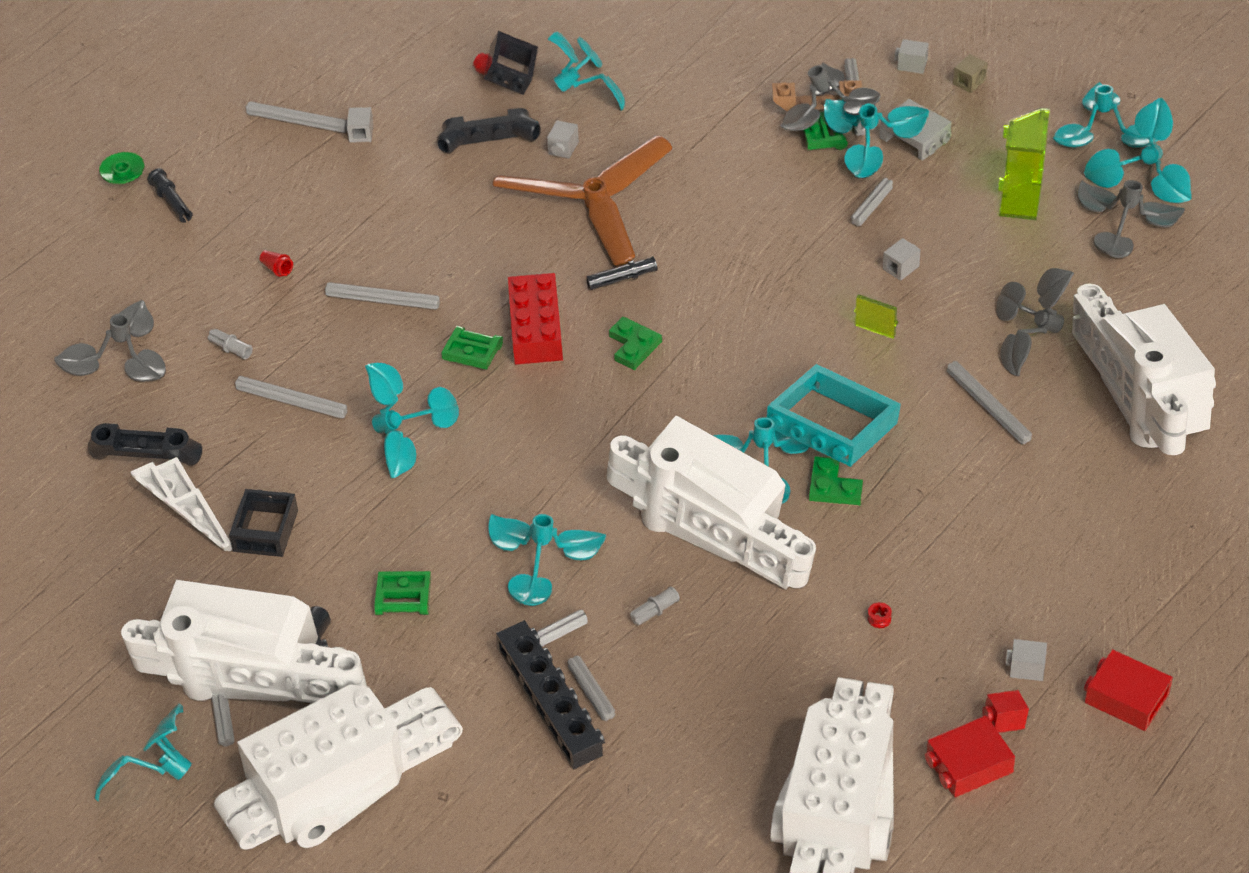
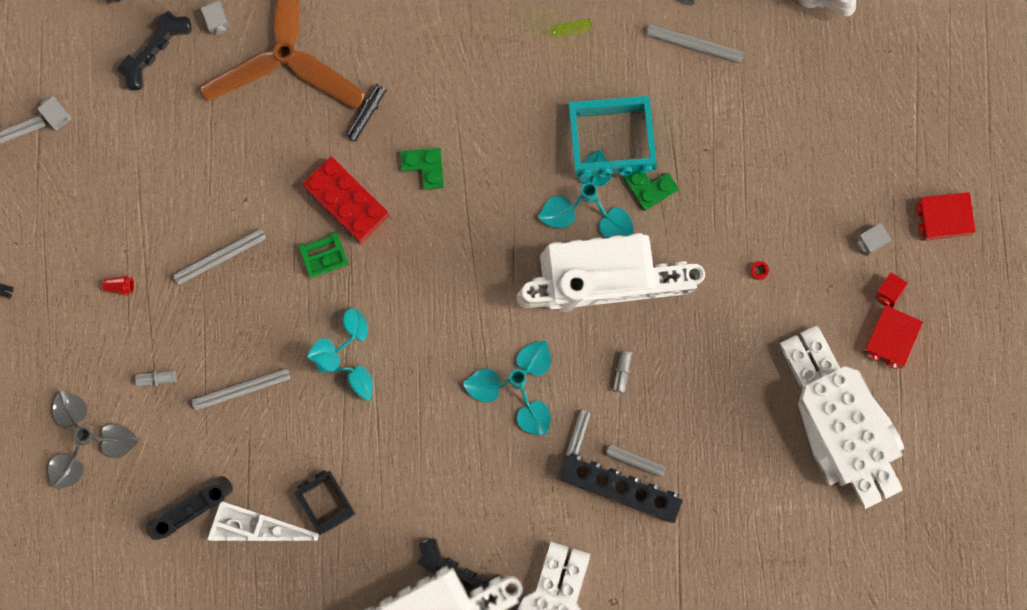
camera: 40 degrees left, 35 degrees up
(403, 585) = (456, 479): green plate -> none

